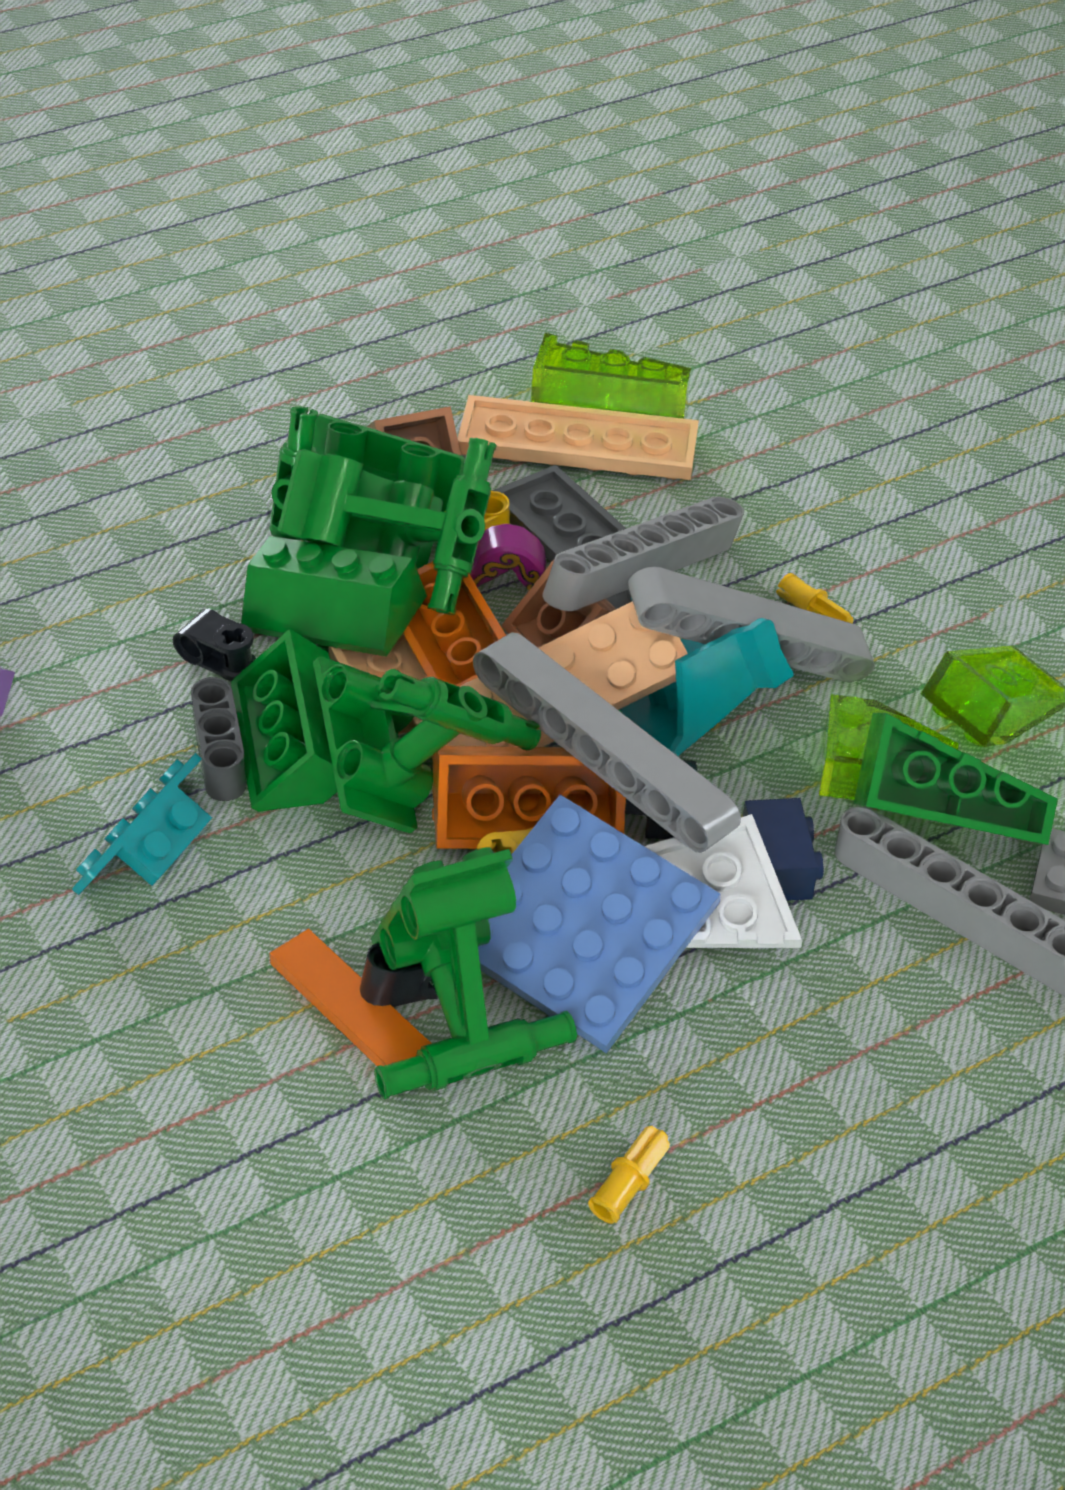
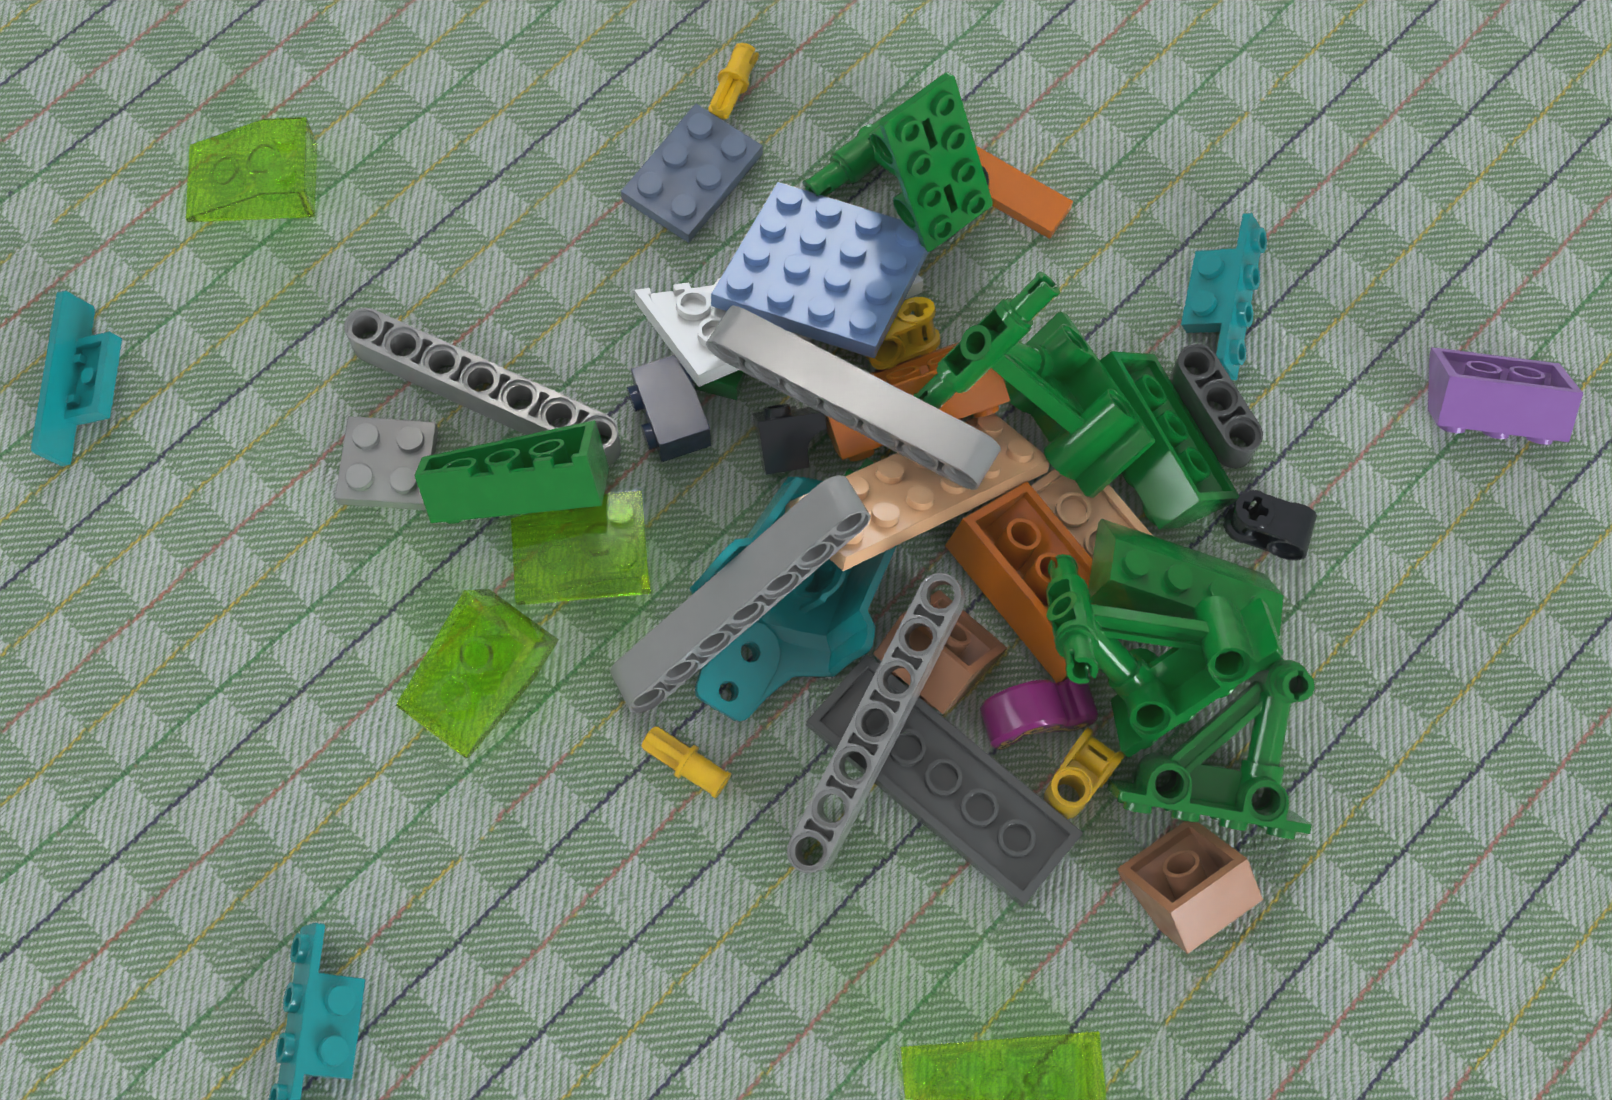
camera: 165 degrees right, 25 degrees up
(581, 437) = (1014, 980): light nougat plate -> none
(705, 1088) = (692, 172): none -> sand blue plate

